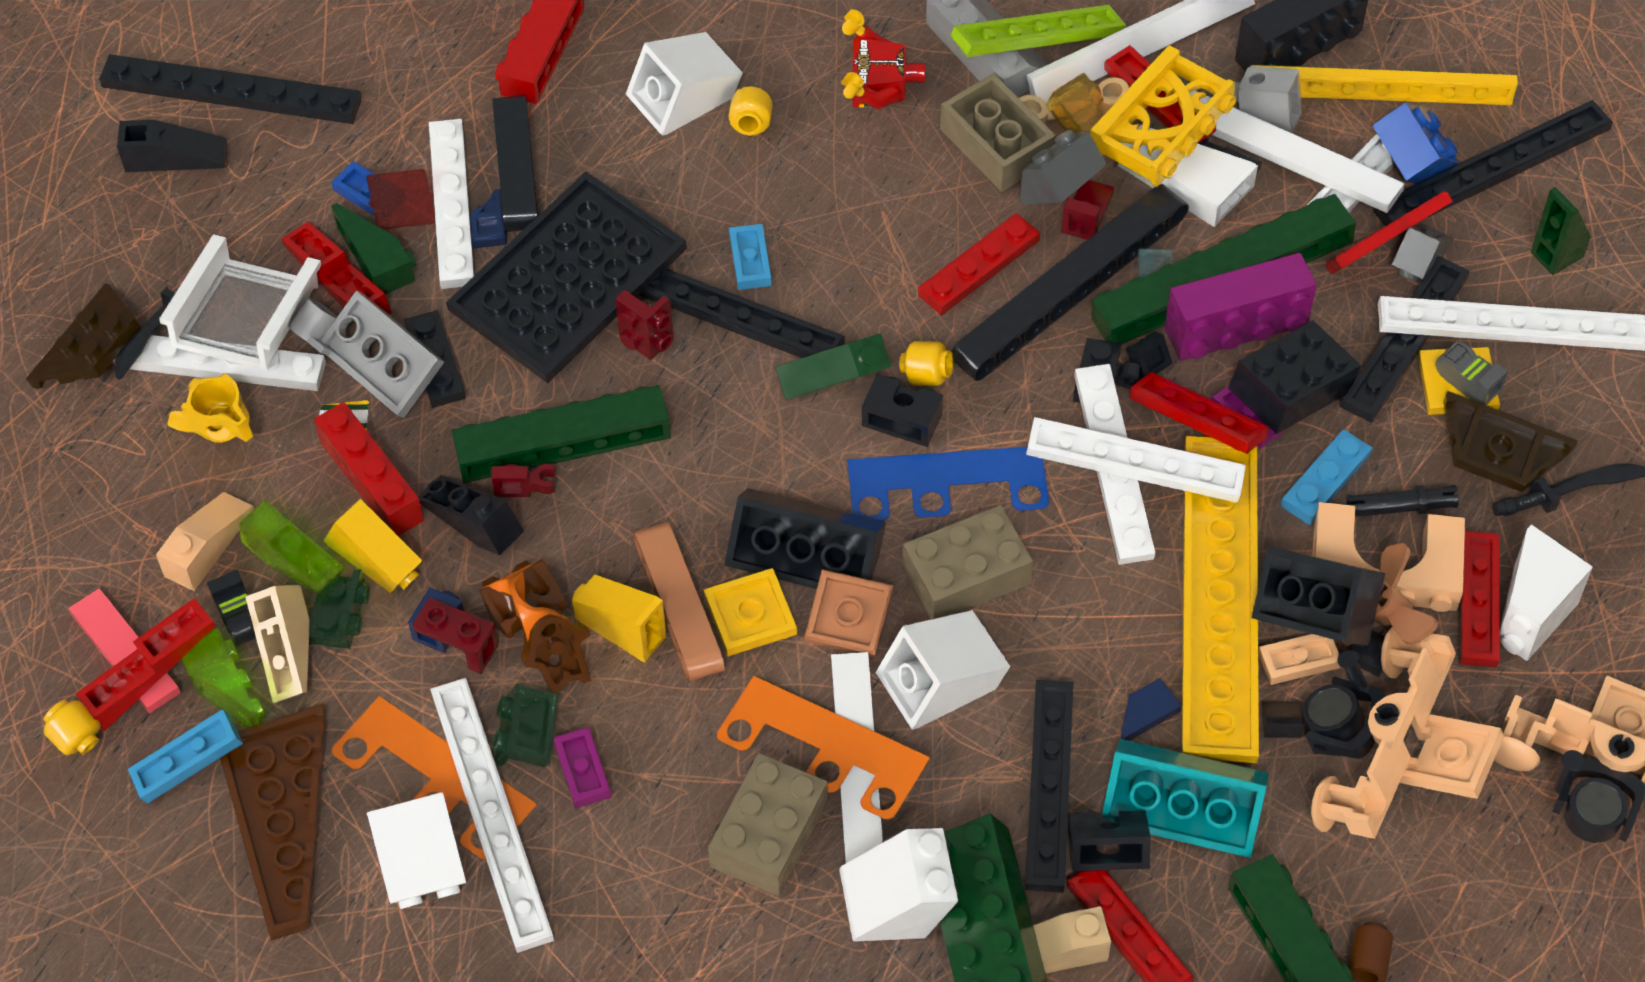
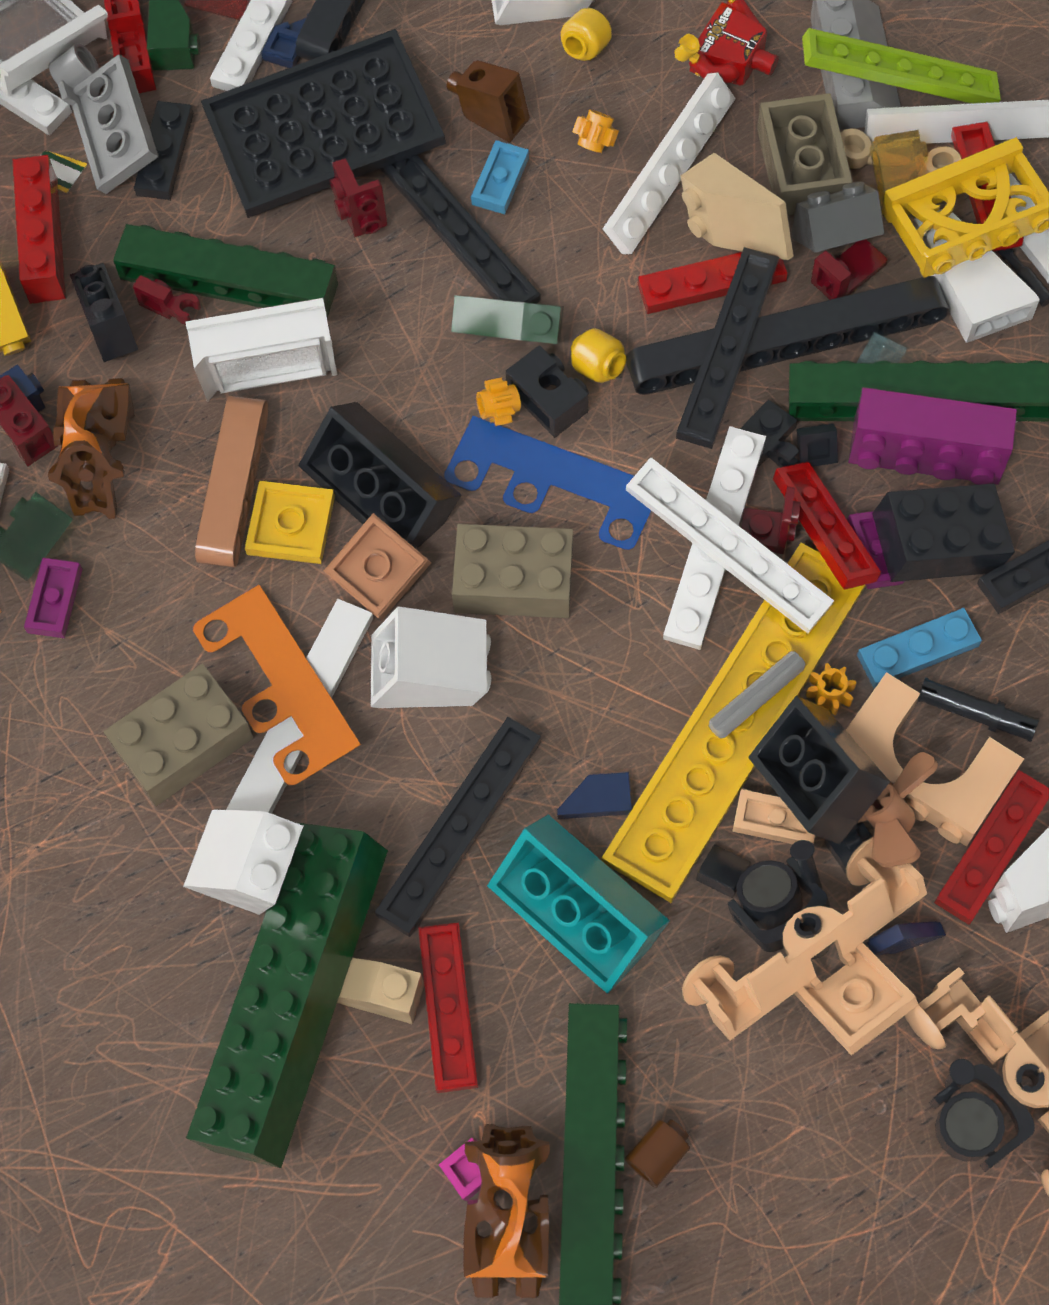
camera: 30 degrees right, 10 degrees up
(621, 615) = (169, 471): yellow slope -> none
(652, 473) = (261, 347): none -> white piece
(704, 194) = (491, 98): none -> reddish brown torso
(809, 185) = (595, 131): none -> light orange gear
(867, 435) = (498, 401): none -> light orange gear
(887, 186) = (668, 162): none -> white plate
(976, 196) = (734, 209): none -> tan slope
(1035, 309) = (727, 348): none -> black tile
(1127, 830) = (465, 895): black brick -> none
(1163, 429) = (772, 527): none -> dark red bracket
(1228, 567) = (756, 694): none -> light grey axle
(1280, 534) = (828, 678): none -> light orange gear
(1456, 697) = (905, 936): none -> dark blue tile

